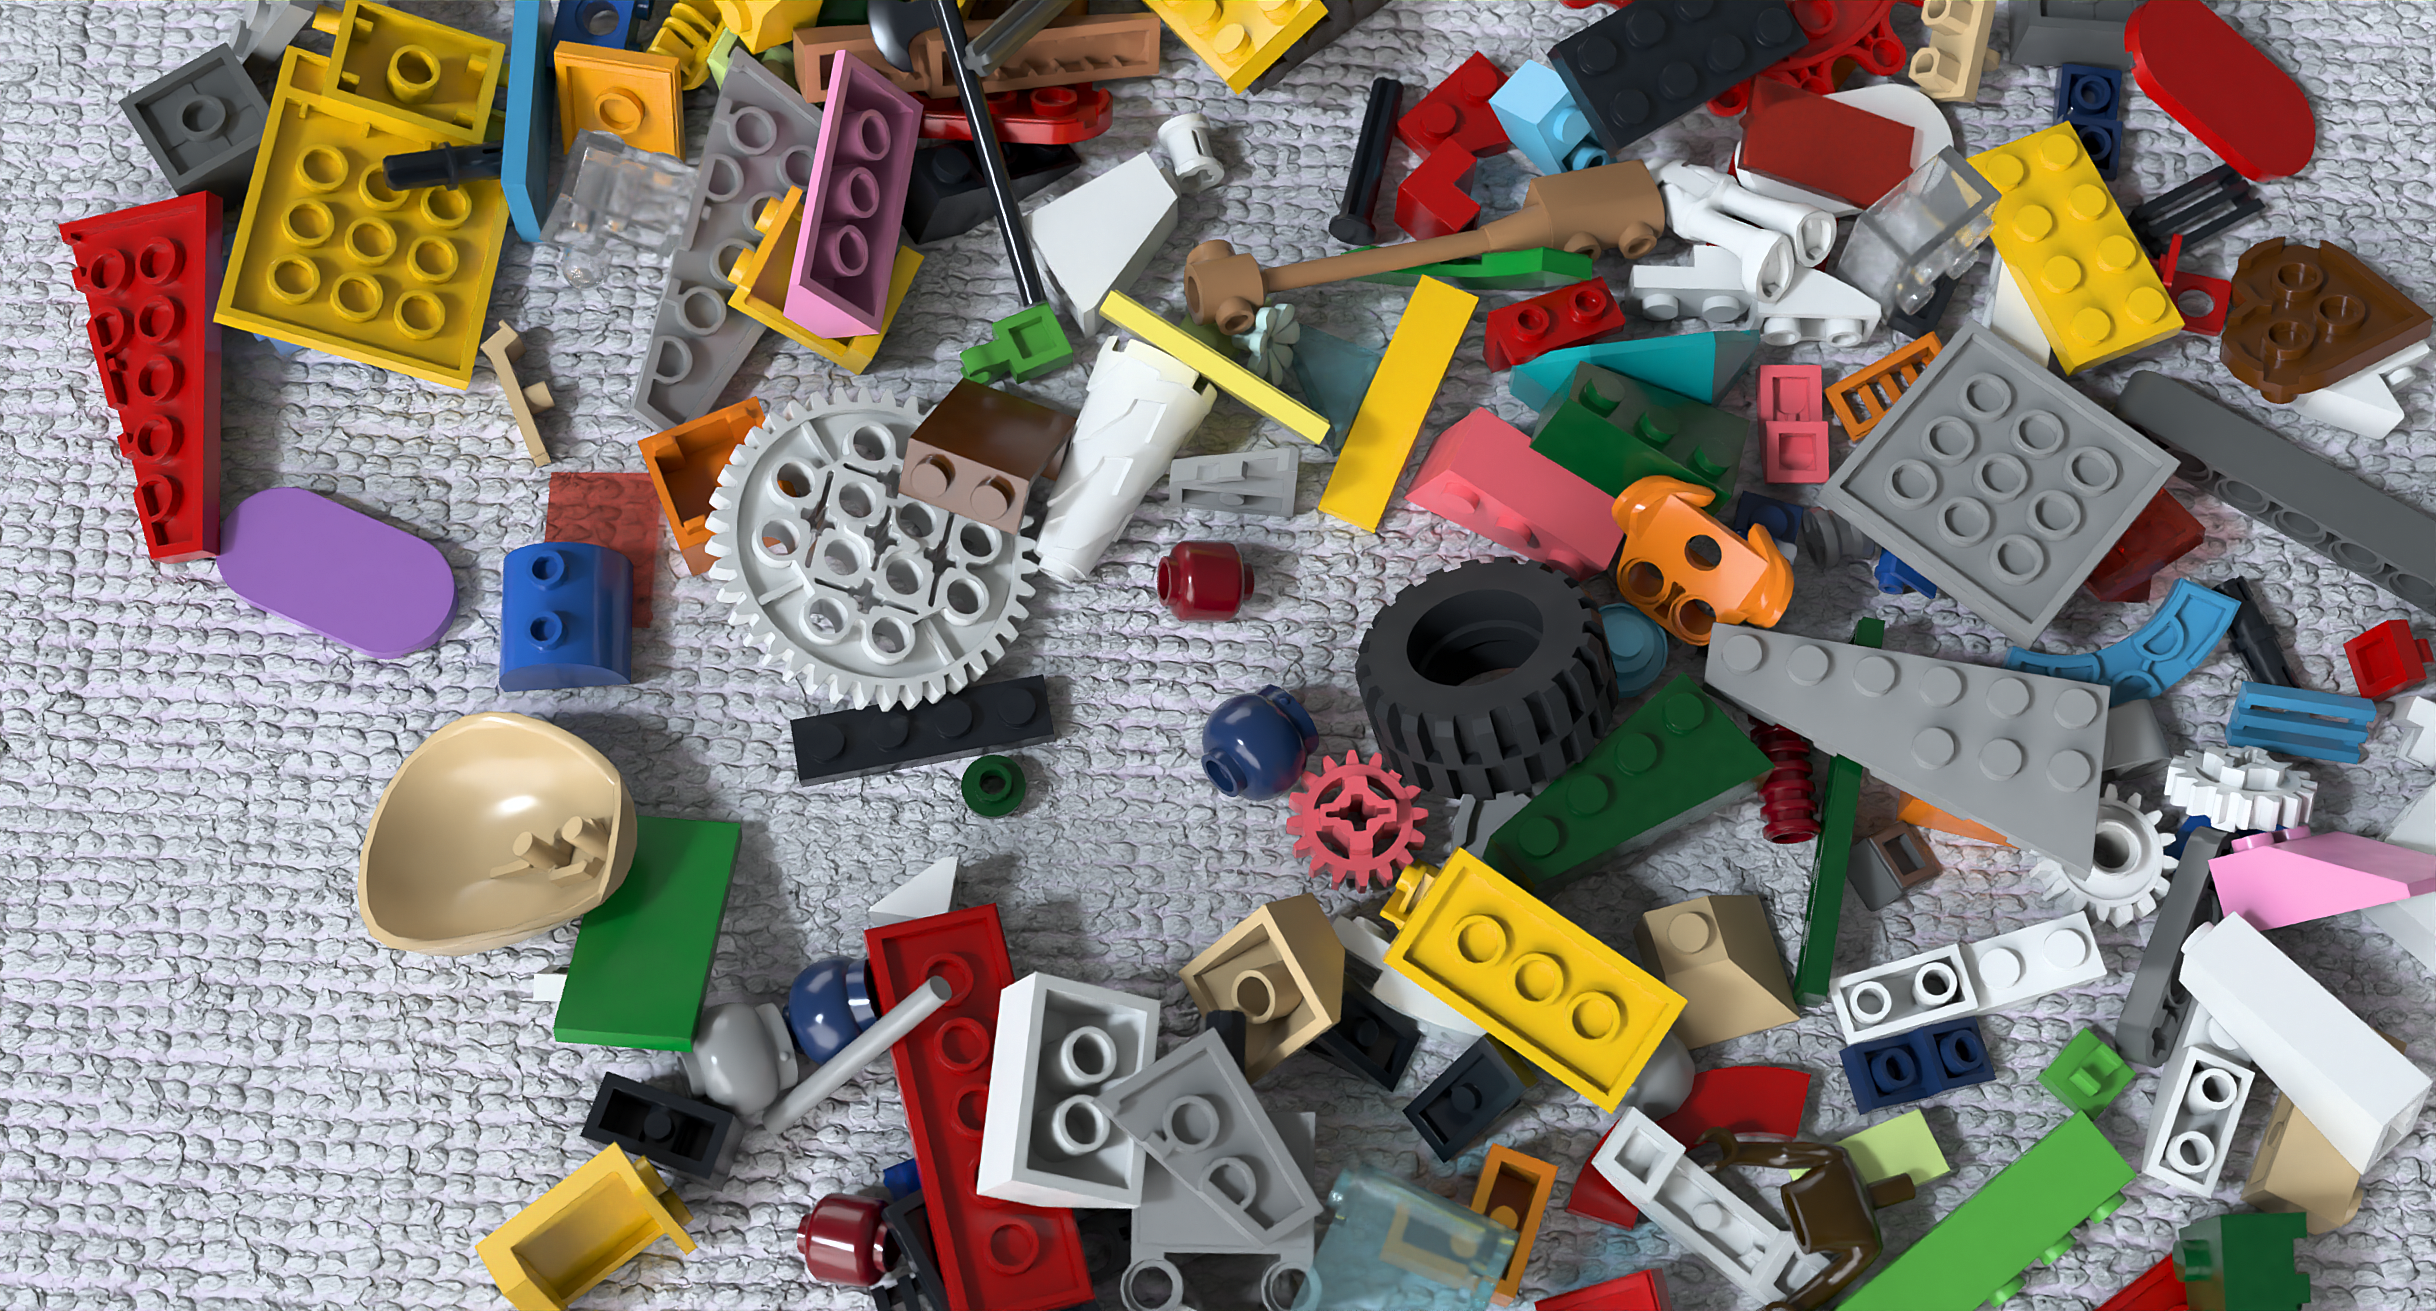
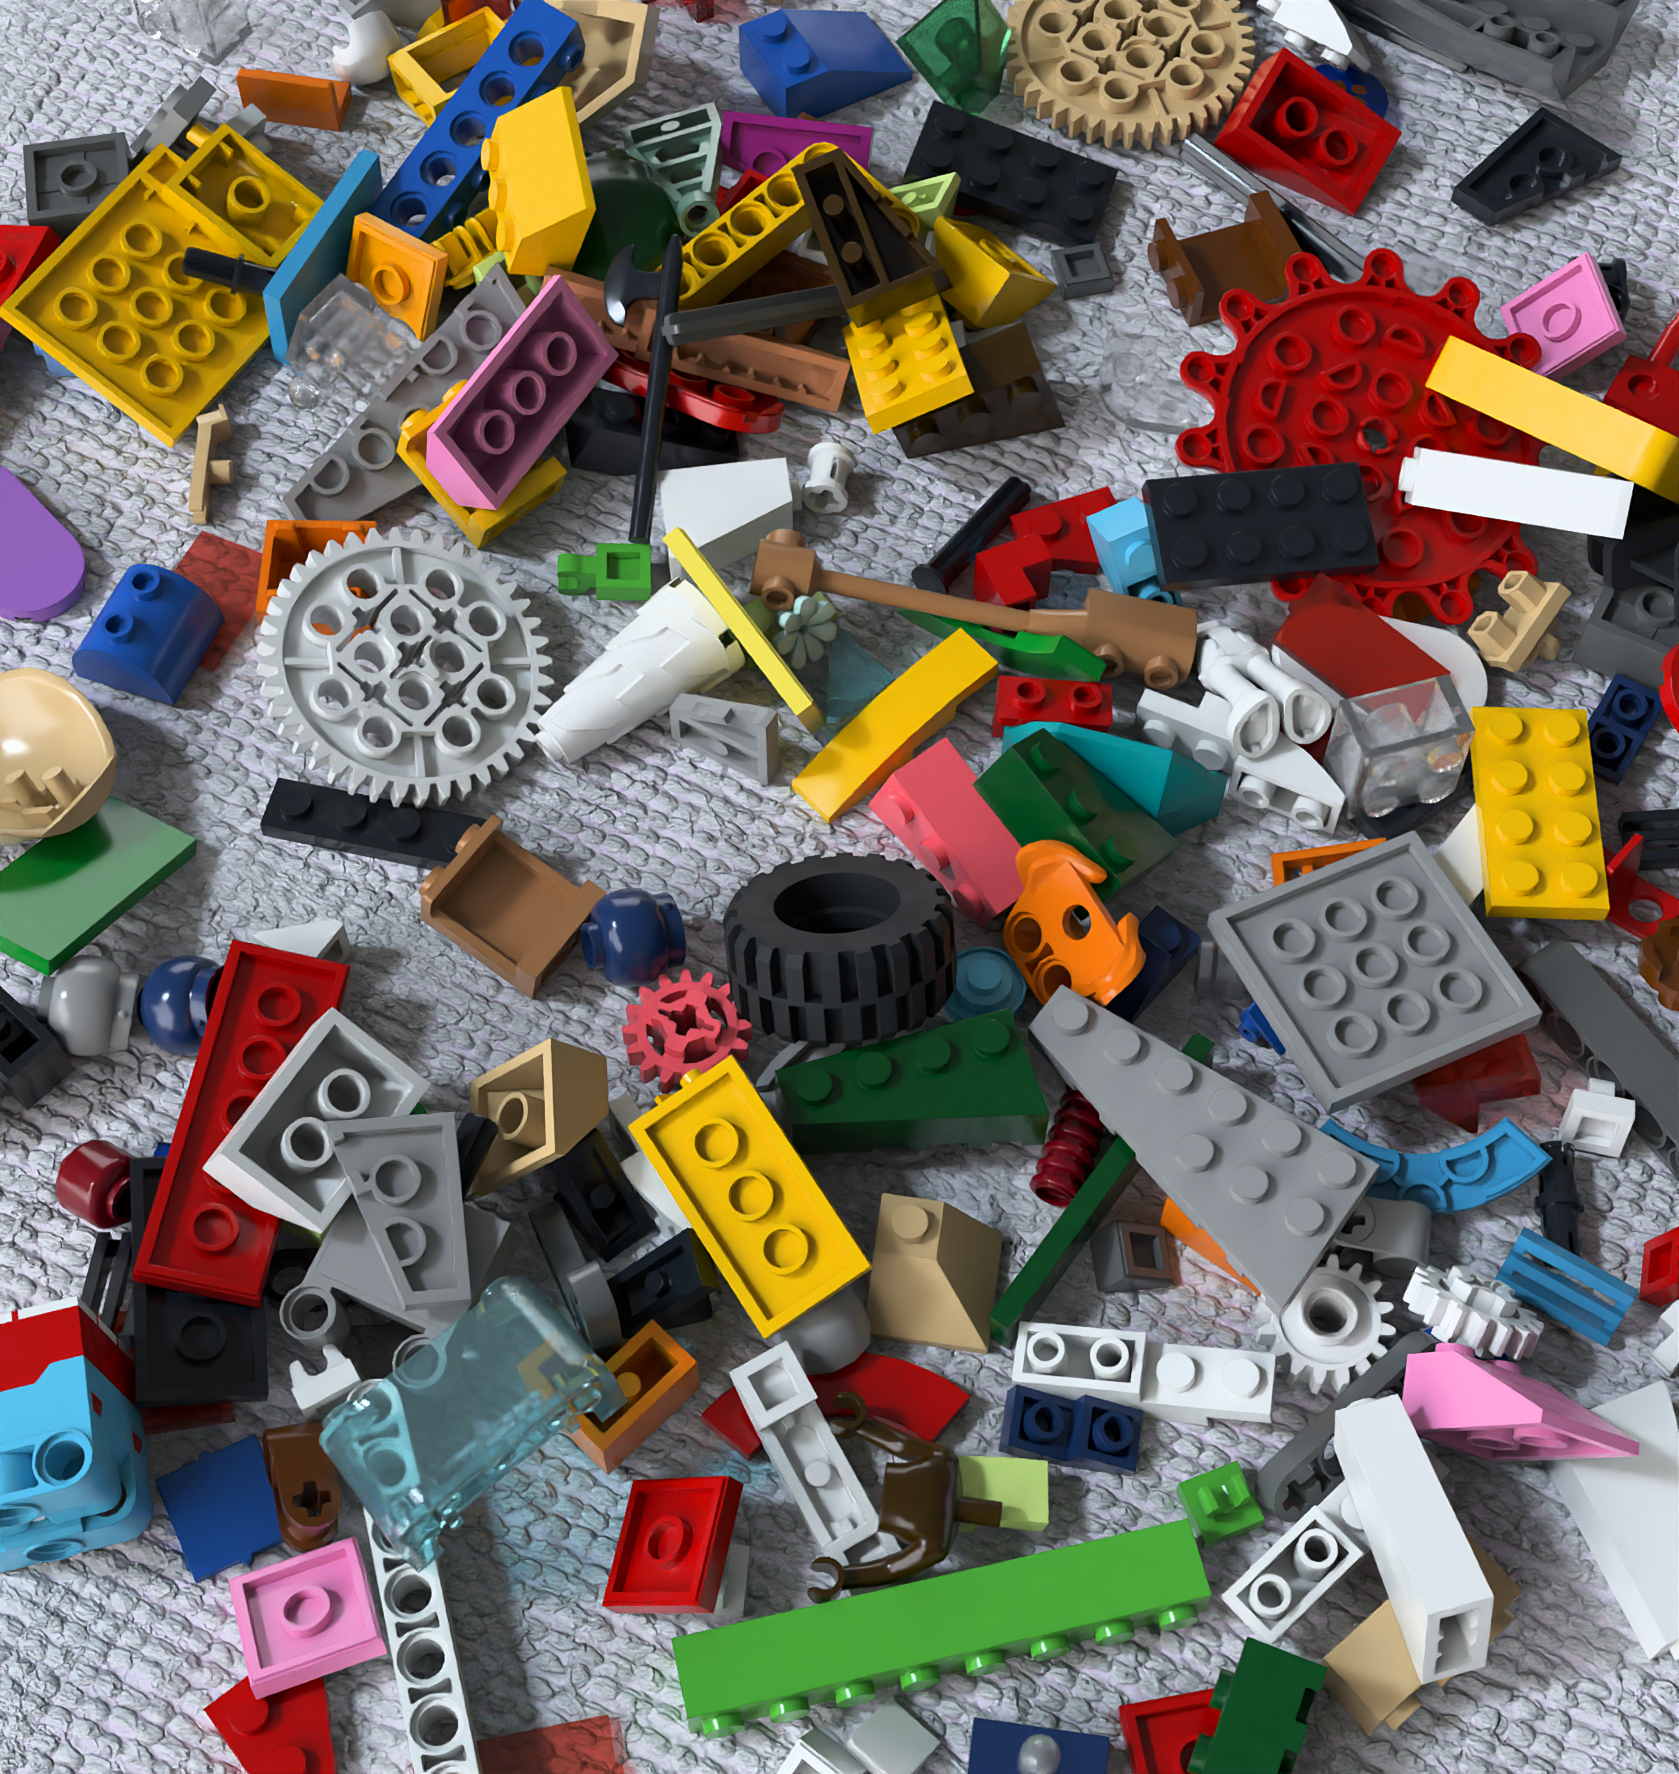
camera: 25 degrees right, 10 degrees down
(857, 1055) = (175, 1032): light grey bar -> none
(984, 454) = (521, 621): reddish brown panel -> none
(993, 805) = (400, 904): dark green plate -> none
(1112, 765) = (507, 907): none -> medium nougat panel
(1204, 581) = (662, 800): dark red head -> none
(1432, 1159) = (579, 1282): none -> dark grey beam
(1791, 424) = (1228, 866): coral slope -> none
(2254, 540) = (1597, 1119): none -> white tile

